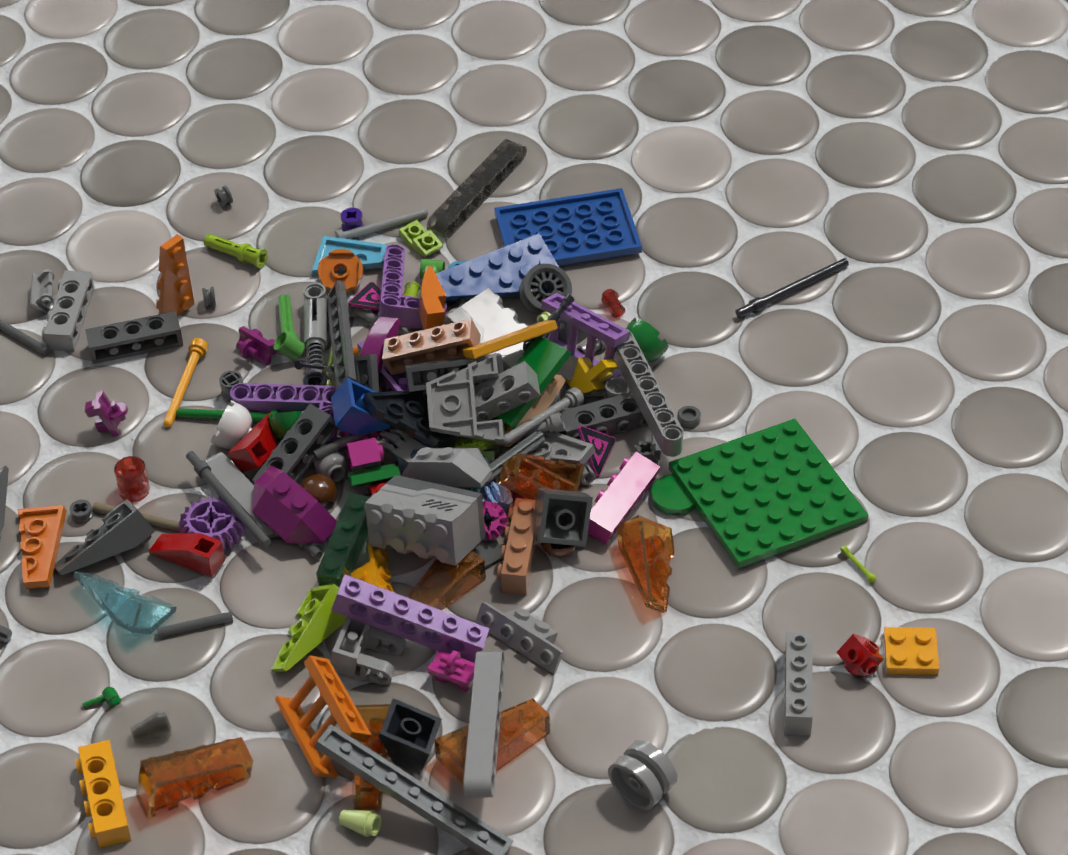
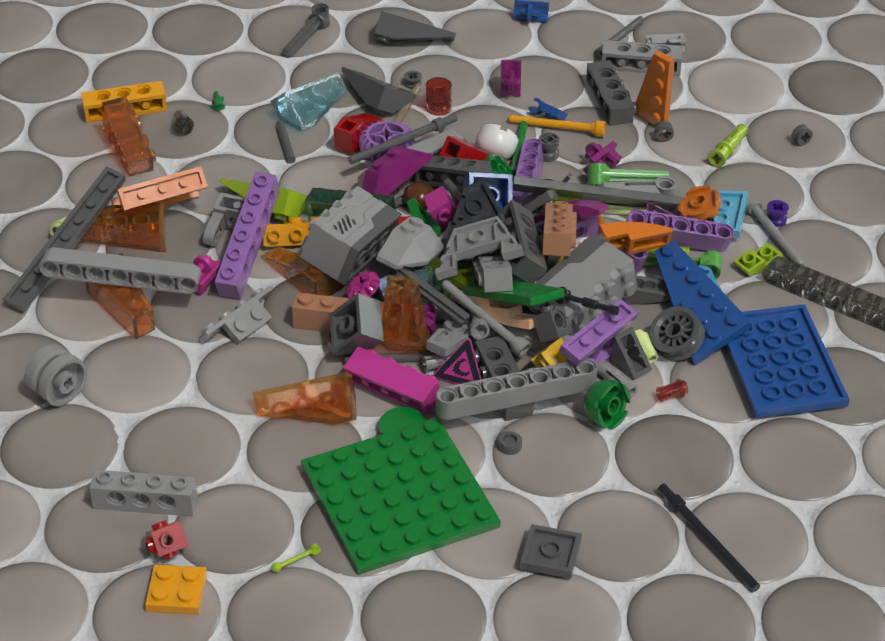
camera: 90 degrees right, 5 degrees down
(40, 542) = (376, 60): orange wing -> none
(165, 385) = (551, 112): none -> blue plate
(408, 735) = (126, 233): black slope -> none
(510, 339) = (550, 265): light orange tile -> none
(827, 384) = (551, 551): none -> dark grey plate

